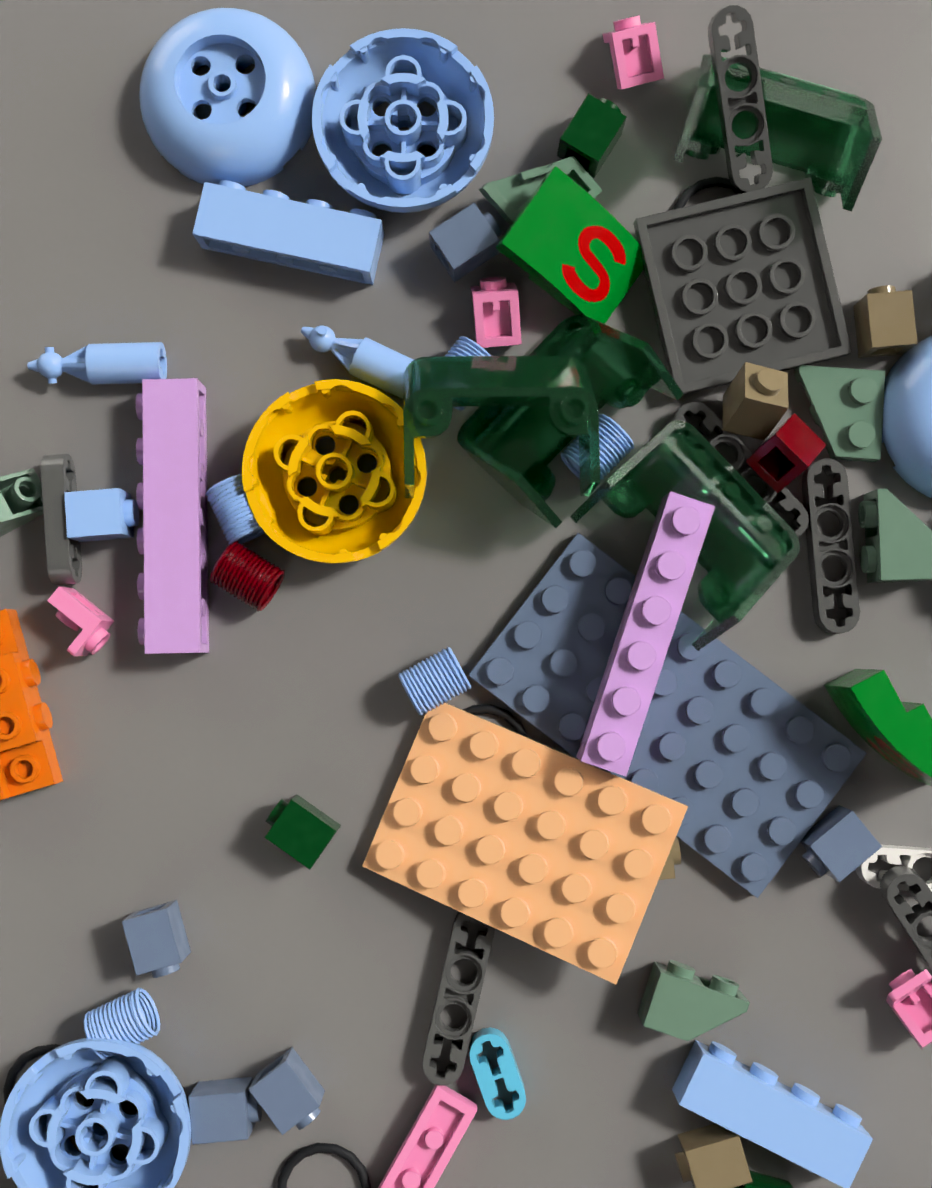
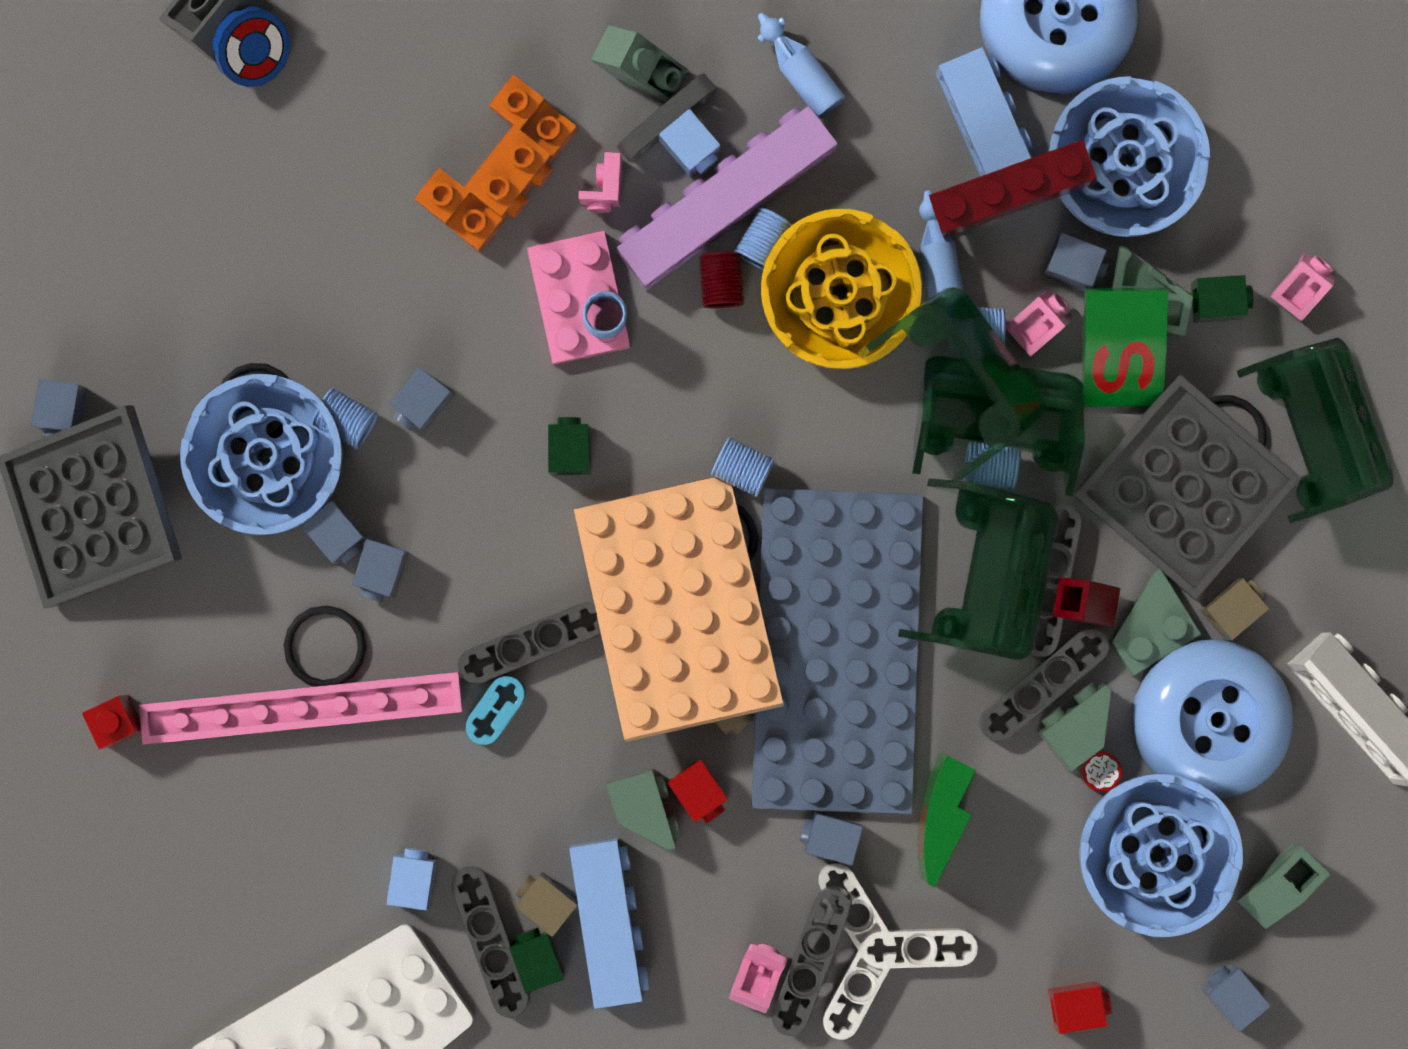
camera: 55 degrees right, 0 degrees up
(169, 720) = (564, 279): none -> bright pink plate
(176, 711) = (601, 296): none -> light blue piece
(356, 241) = (1013, 188): none -> dark red brick
(645, 633) = (883, 589): lavender brick -> none
(708, 938) = (699, 792): none -> red brick
(747, 100) = (1320, 391): dark grey beam -> none
(755, 401) = (1107, 553): dark tan brick -> none

